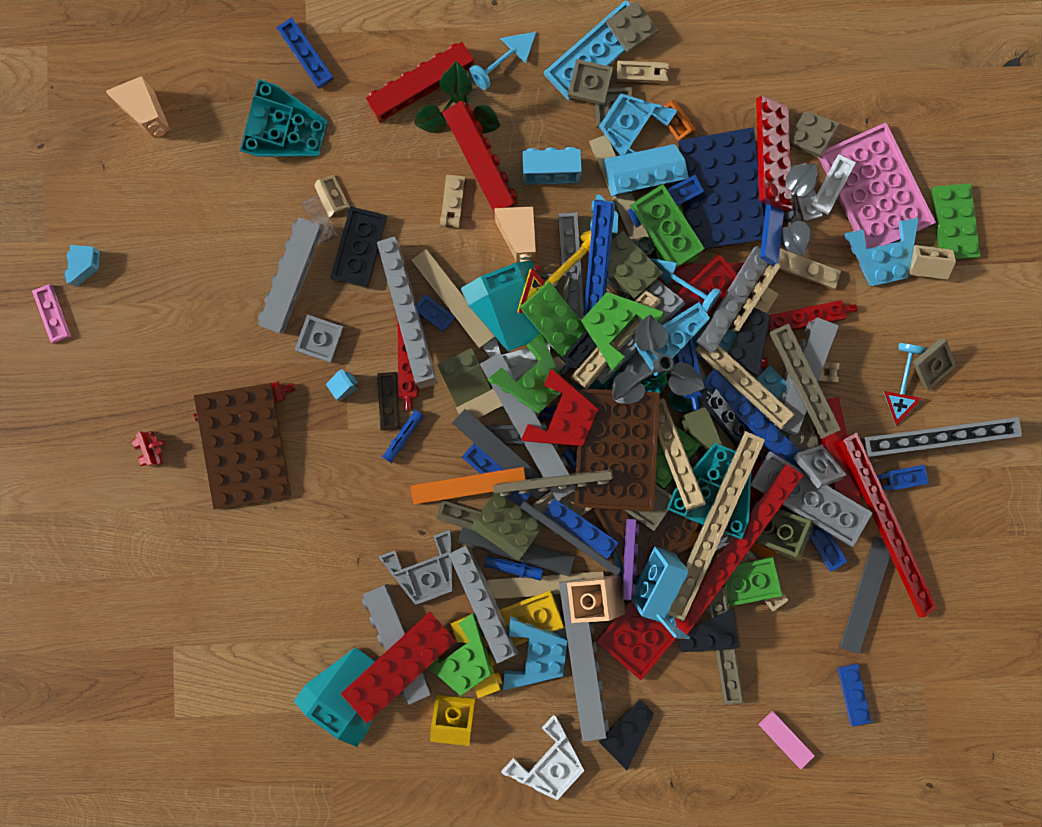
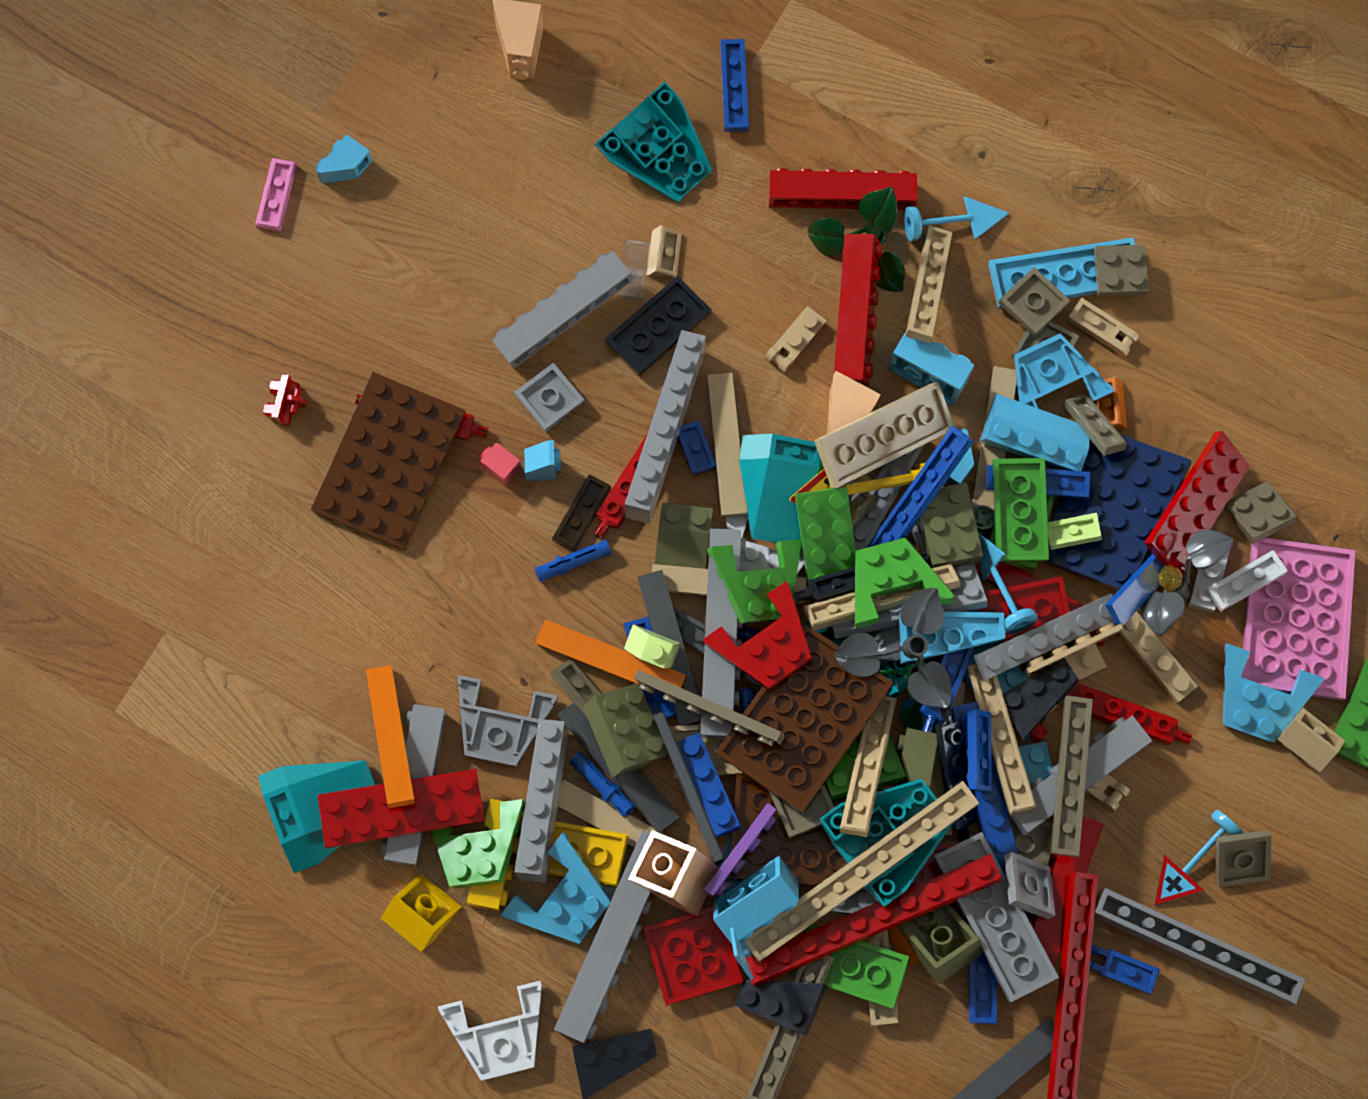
camera: 30 degrees right, 10 degrees down
(315, 402) = (500, 463): none -> coral brick
(361, 626) = (390, 737): none -> orange tile
(490, 463) = (652, 647): none -> yellowish green slope
(517, 112) = (928, 284): none -> tan plate
(551, 232) = (884, 435): none -> tan plate
(677, 140) = (1095, 424): none -> dark tan tile
(708, 219) = (1074, 531): none -> yellowish green plate
(738, 401) = (979, 750): none -> blue plate
(788, 213) = (1170, 578): none -> clear yellow plate

